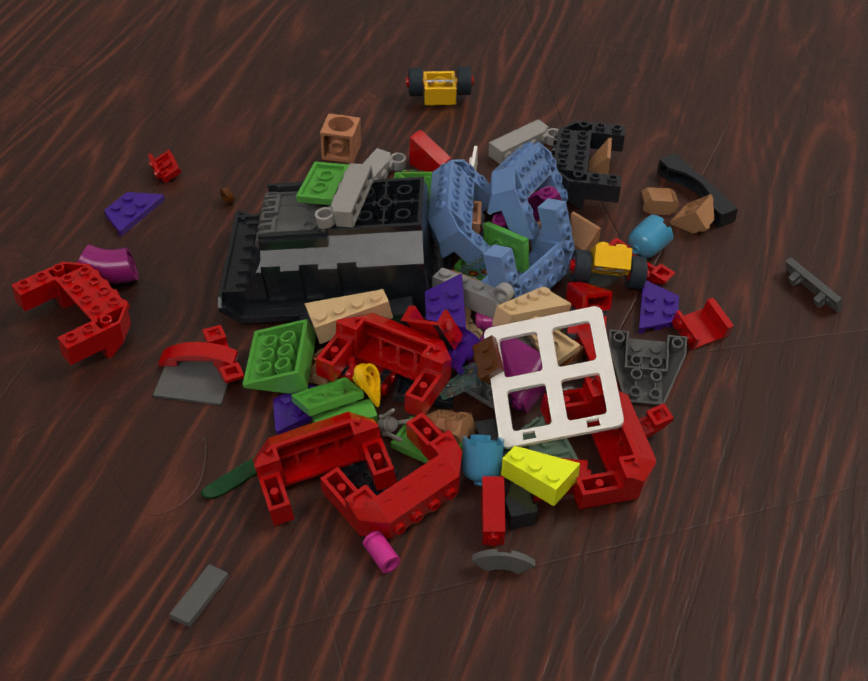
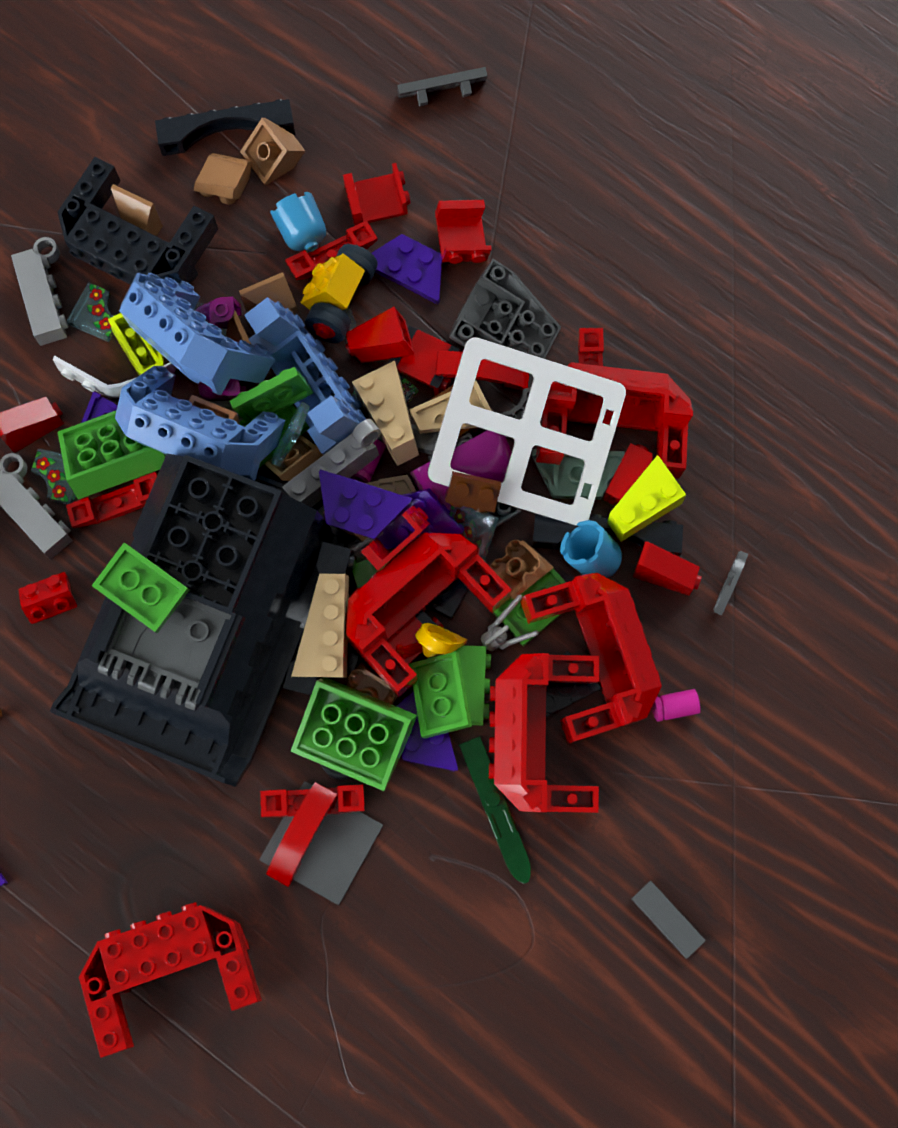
camera: 65 degrees left, 30 degrees up
(113, 264) = (85, 917): magenta brick -> none
(348, 199) = (190, 561): light grey hinge -> none
(697, 276) = (377, 197): none -> red panel

